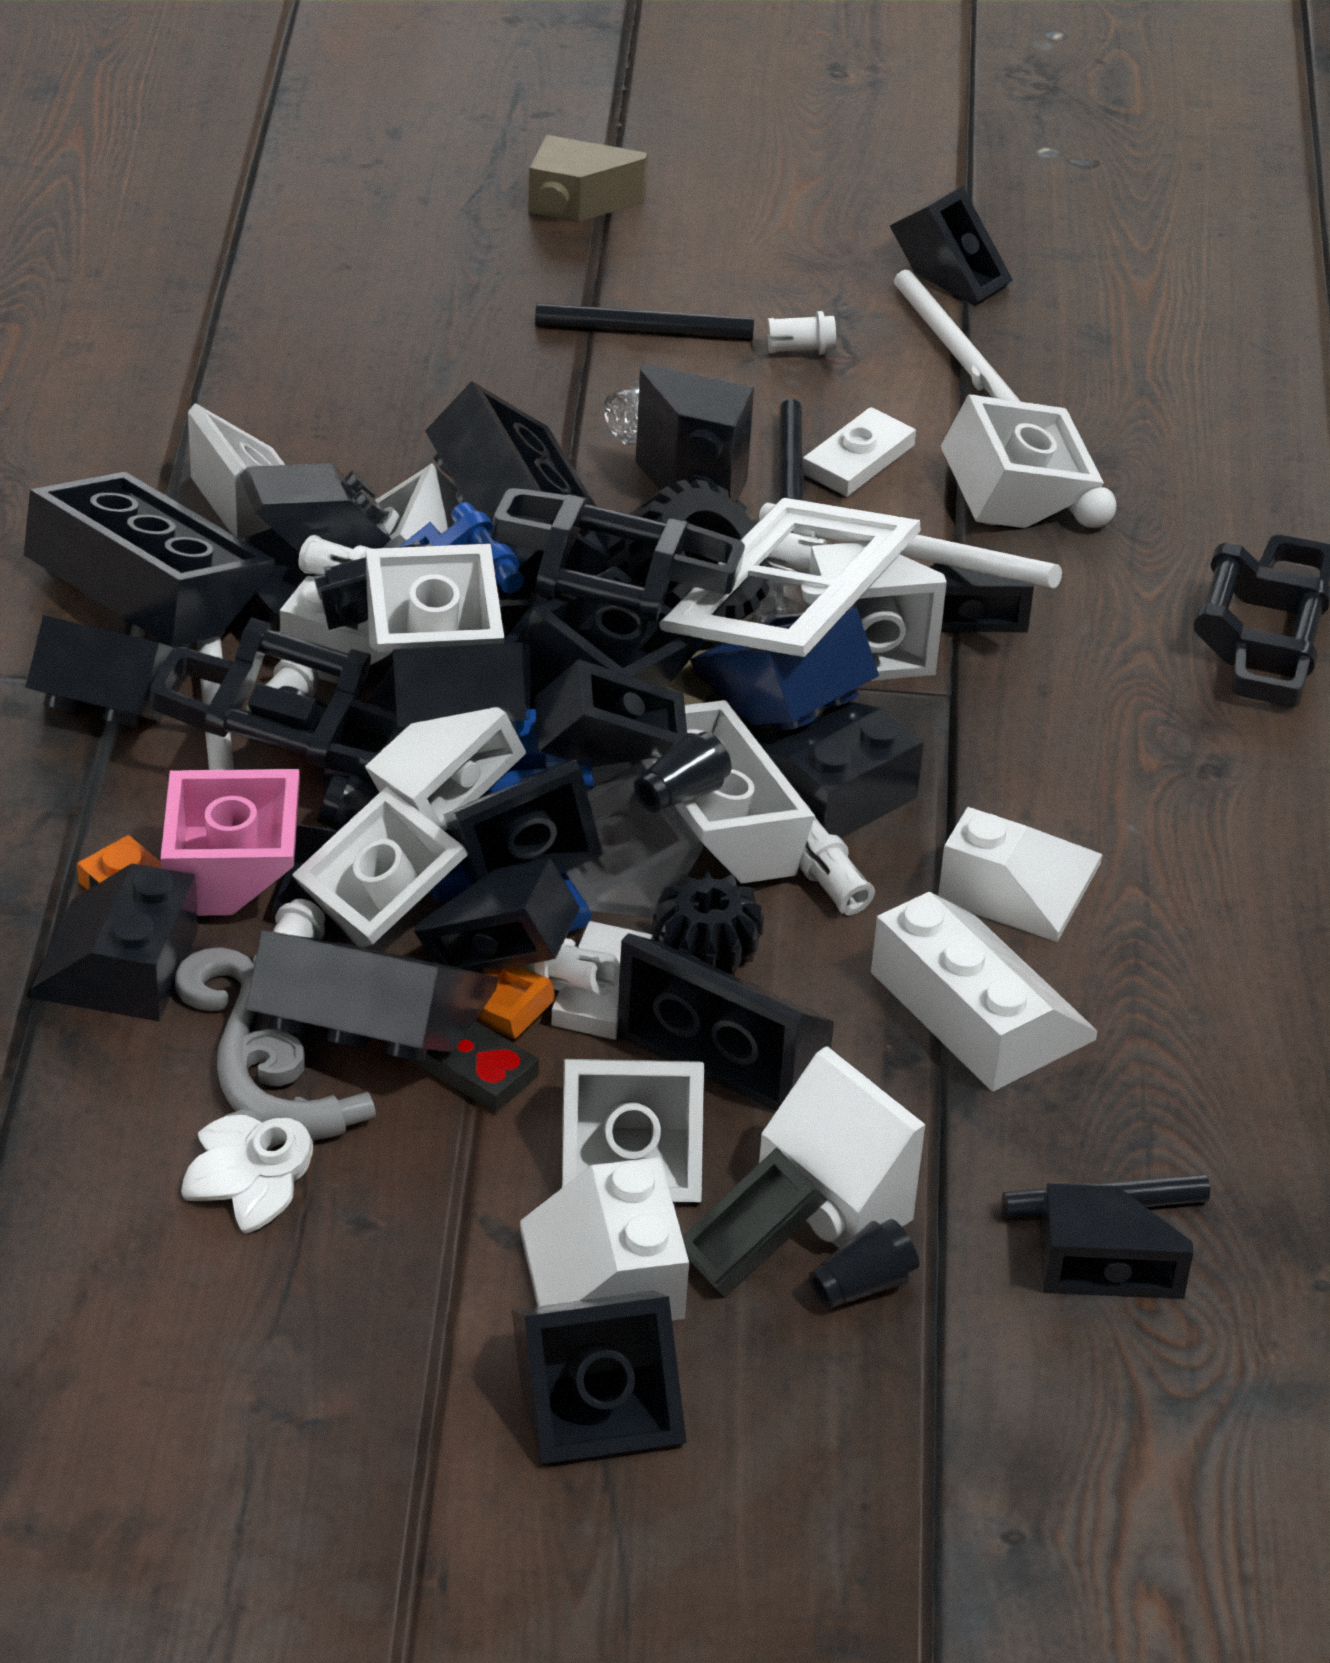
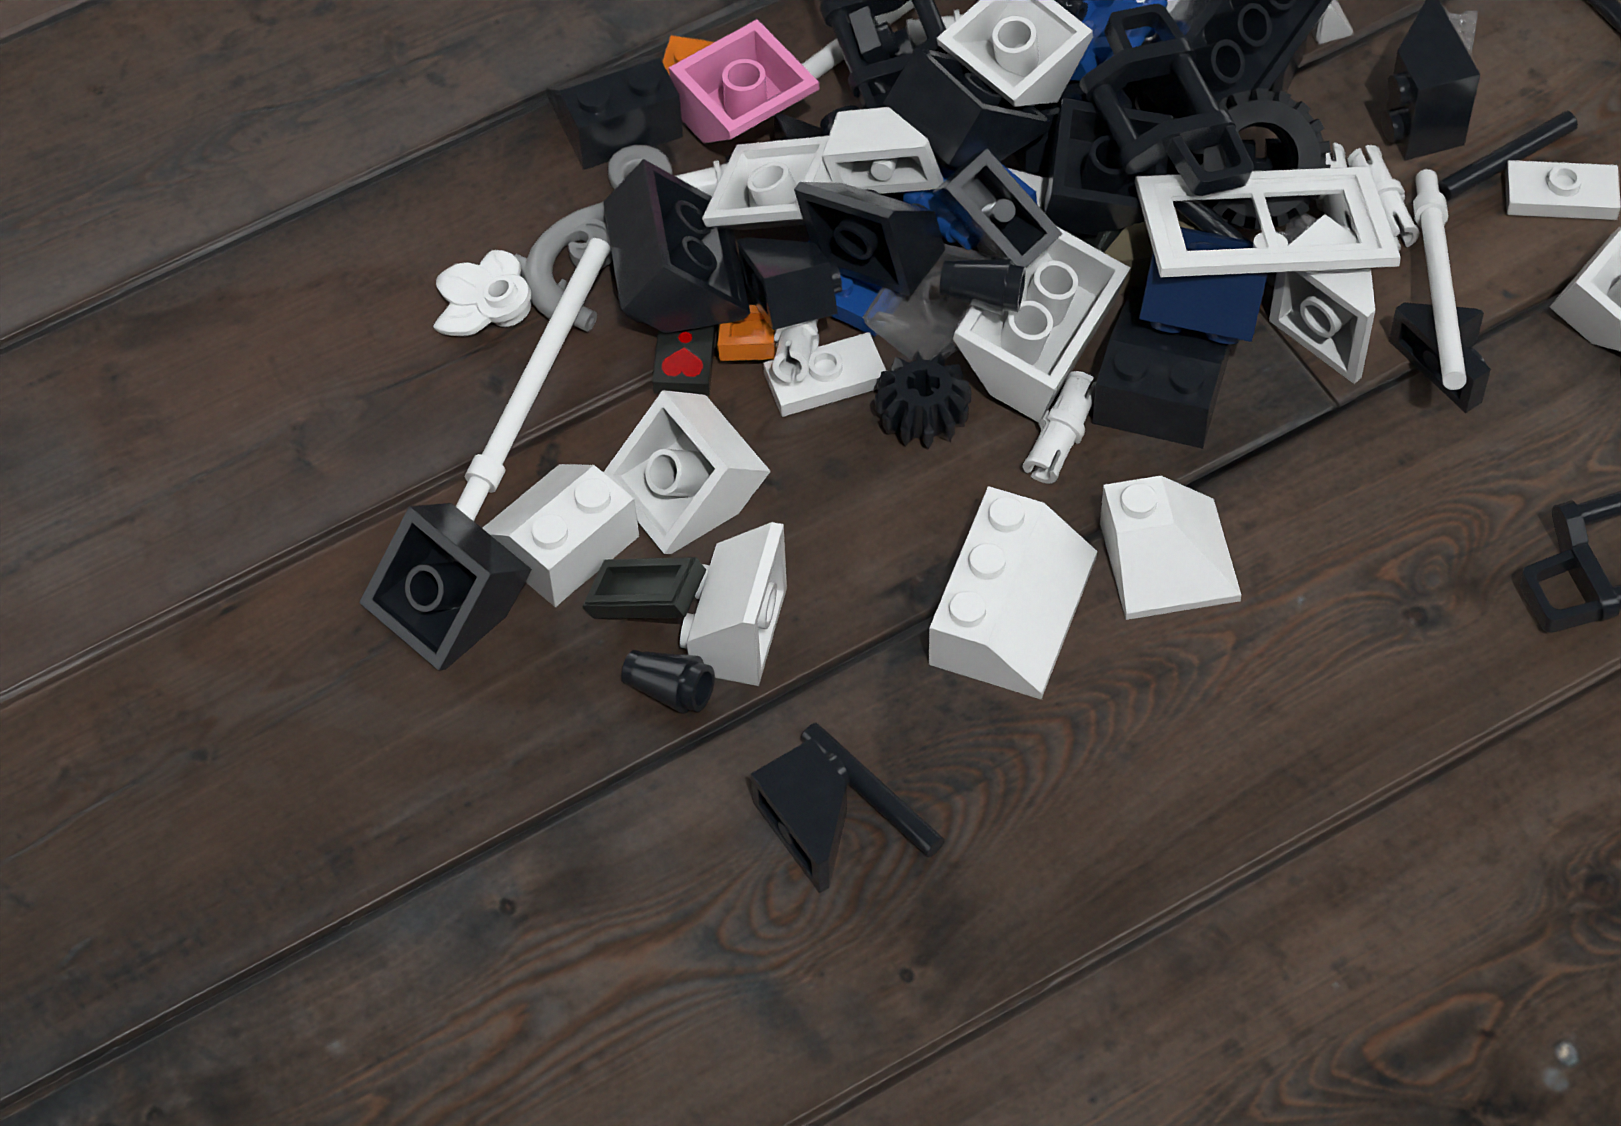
camera: 60 degrees right, 15 degrees up
(477, 1272) = (487, 468): none -> white bar
(710, 1016) = (827, 459): black slope -> none

